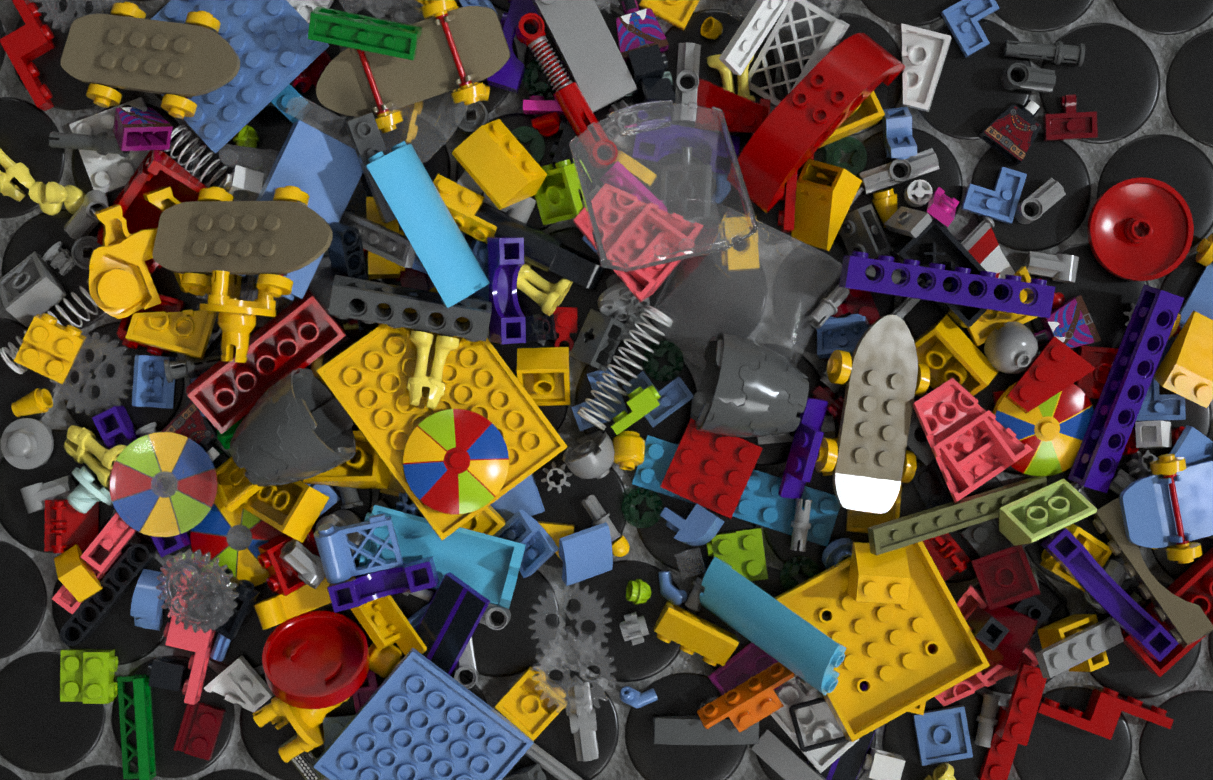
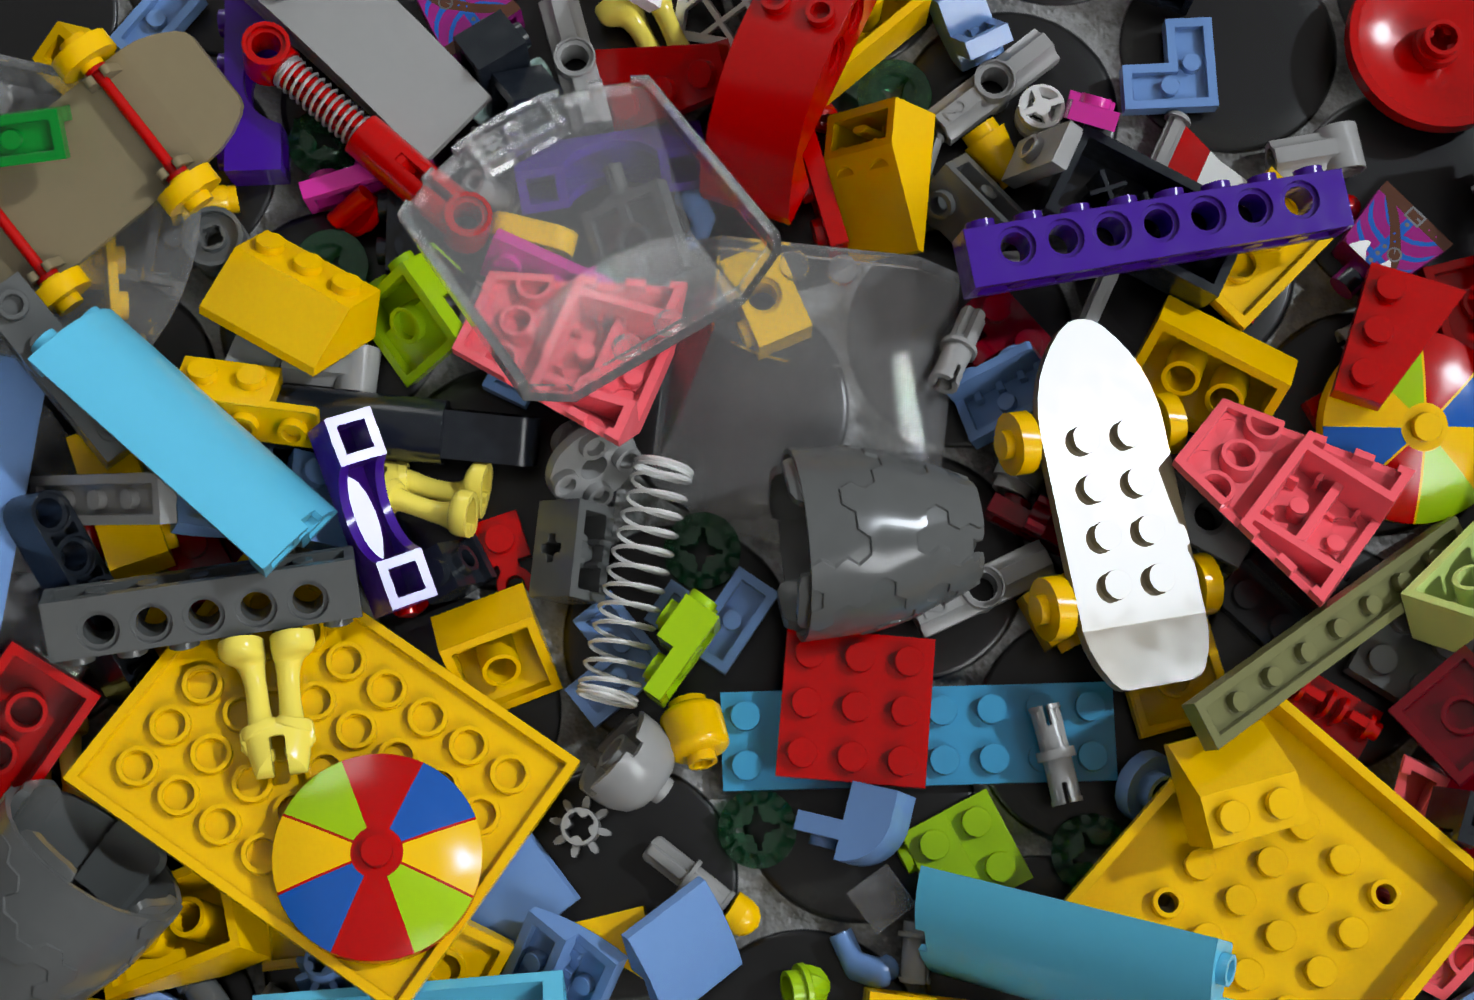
camera: 20 degrees left, 10 degrees down
(804, 449) = (1010, 614): dark purple bracket -> none
(1011, 348) = (1305, 312): light grey cylinder -> none
(1040, 201) = (1251, 56): light grey piece -> none

